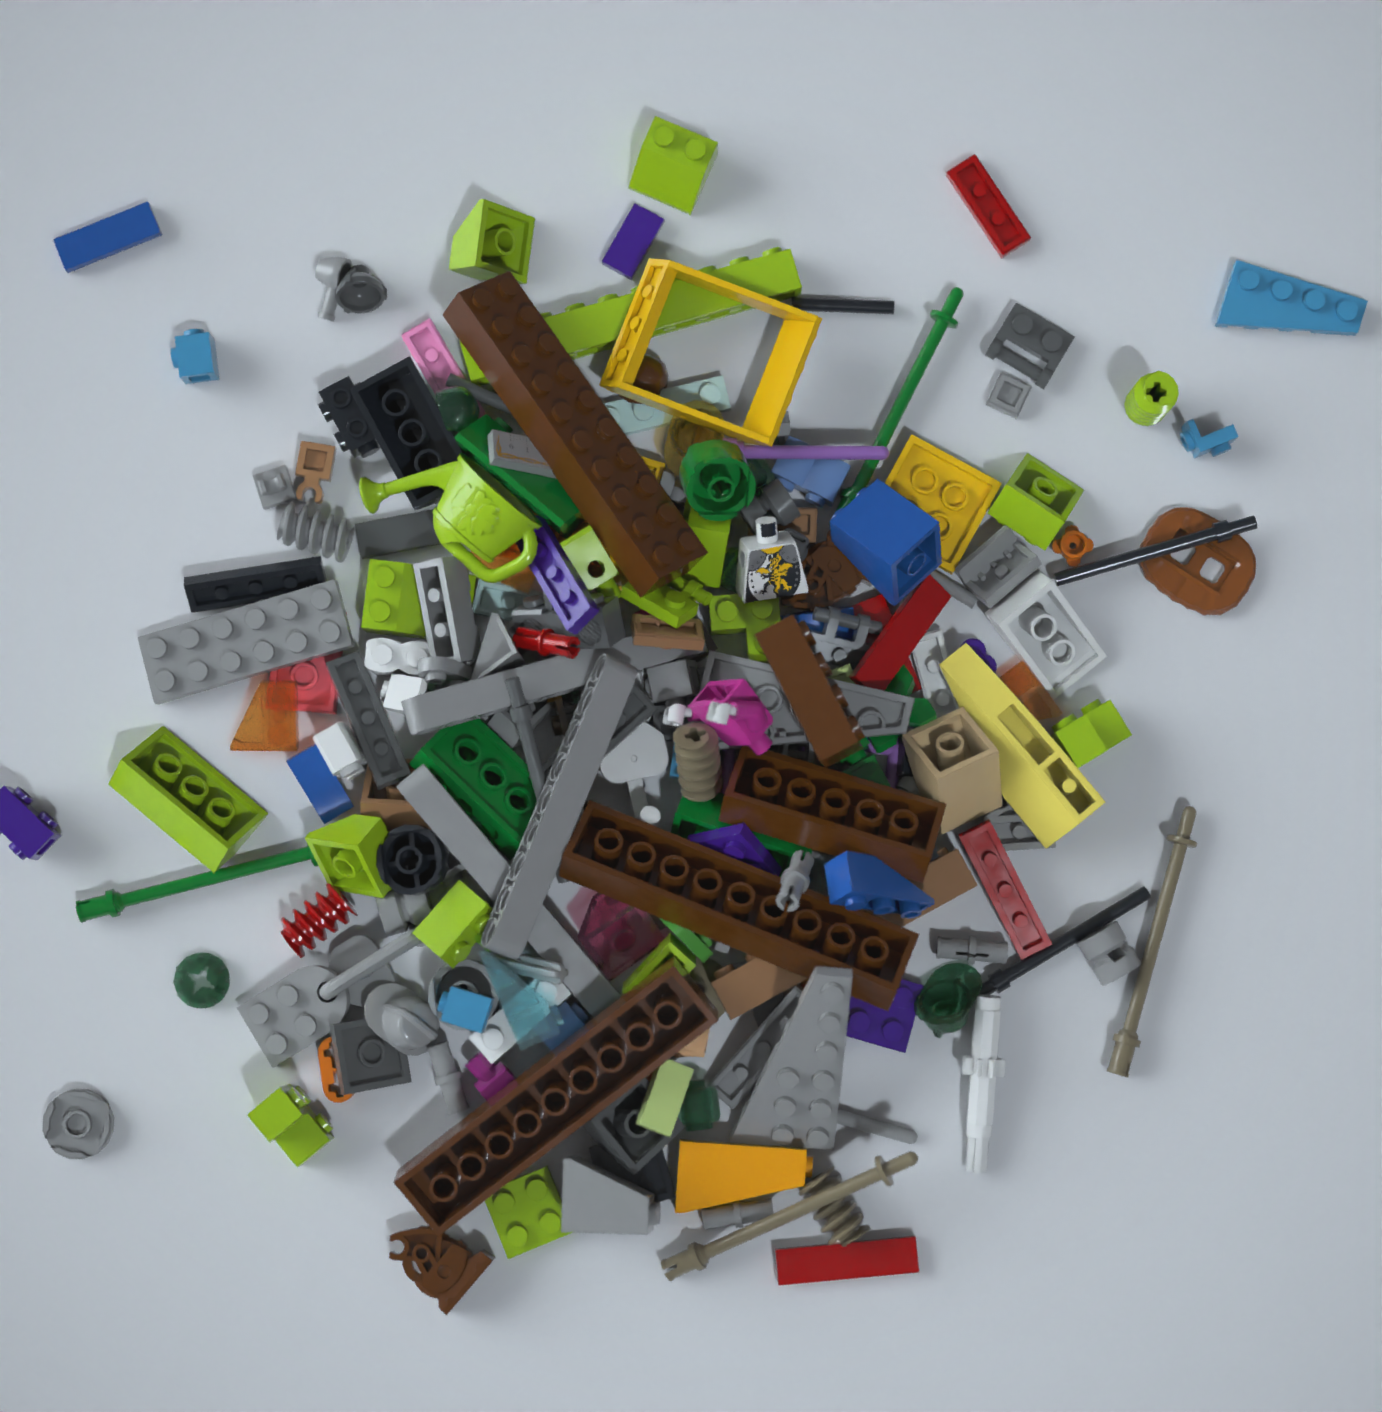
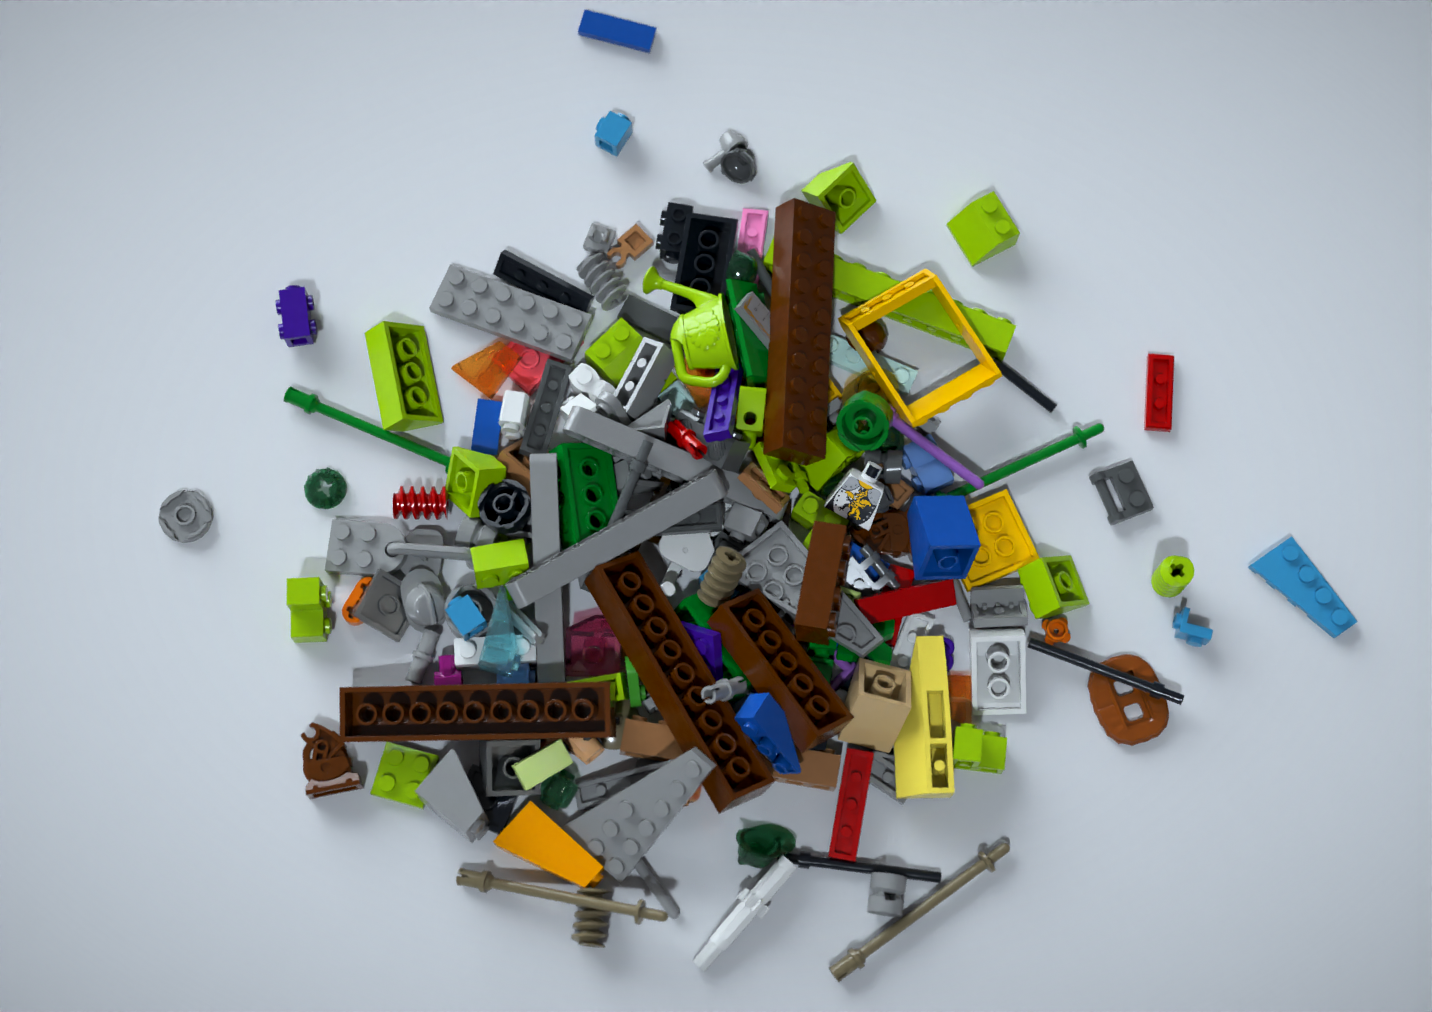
camera: 35 degrees right, 10 degrees down
(633, 241) = (924, 255): dark purple tile -> none
(730, 710) = (764, 561): dark pink torso -> none
(736, 1213) = (528, 874): light grey pin -> none
(851, 1261) = (574, 958): red tile -> none
(882, 1027) = (714, 830): dark purple plate -> none
(972, 950) = (802, 827): light grey pin -> none
(1008, 395) = (1085, 512): light grey tile -> none

